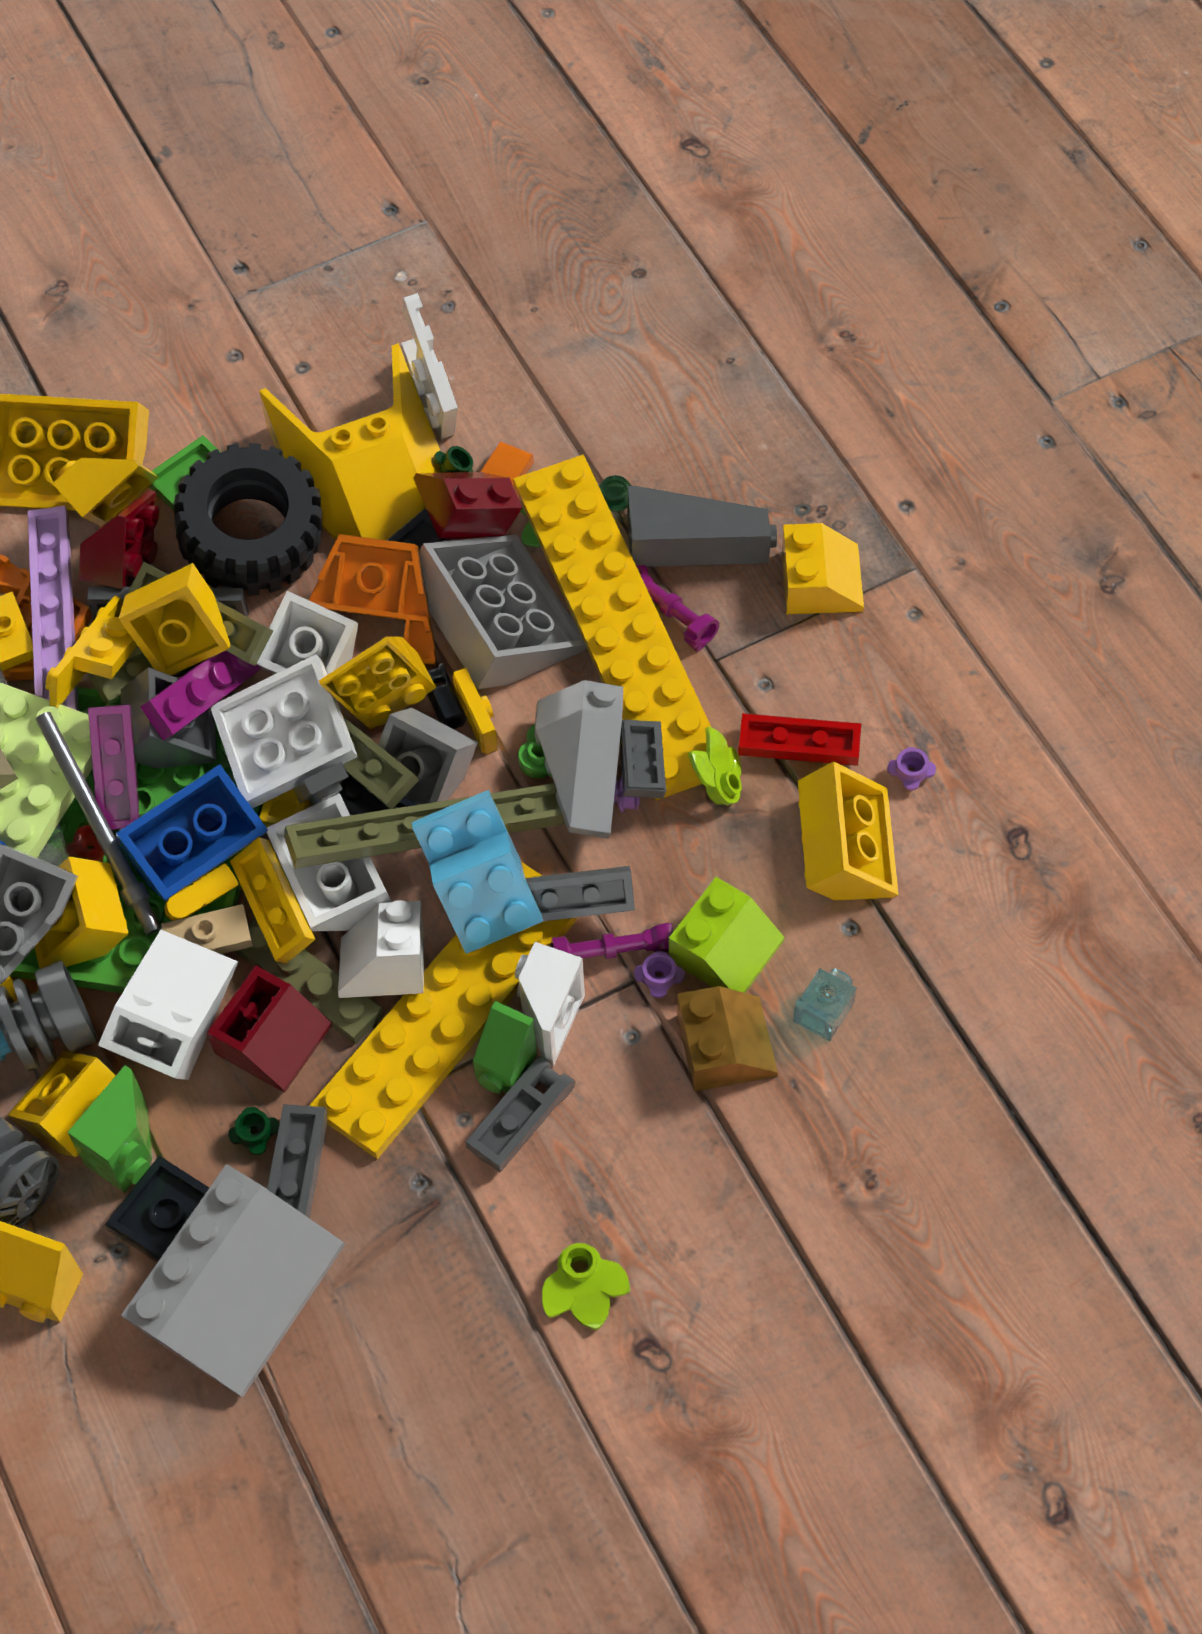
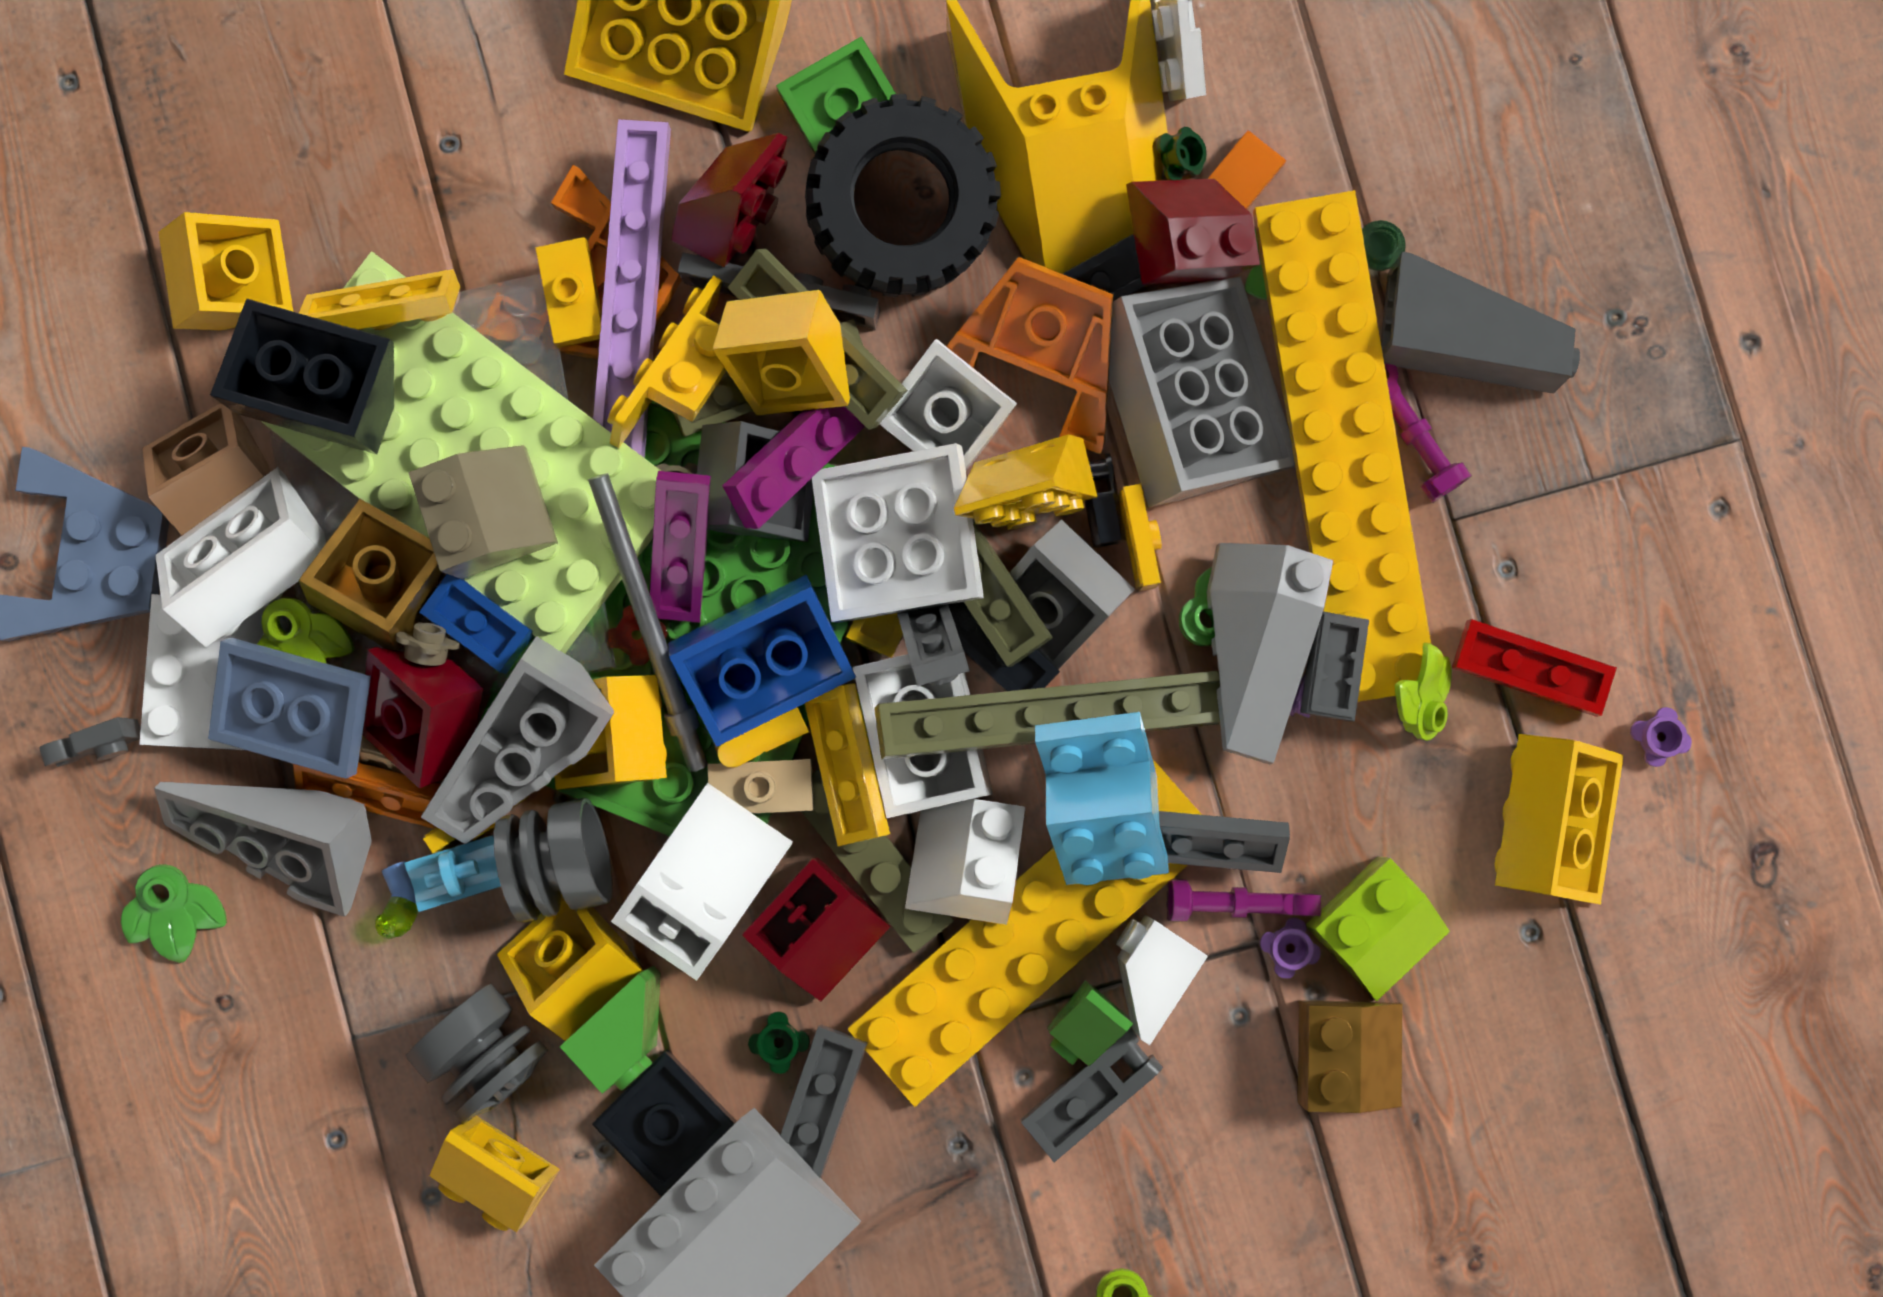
camera: 15 degrees right, 25 degrees up
(102, 486) = (714, 104): yellow slope -> none
(820, 570) = (1616, 426): yellow slope -> none
(824, 1014) = (1462, 1034): clear light blue brick -> none

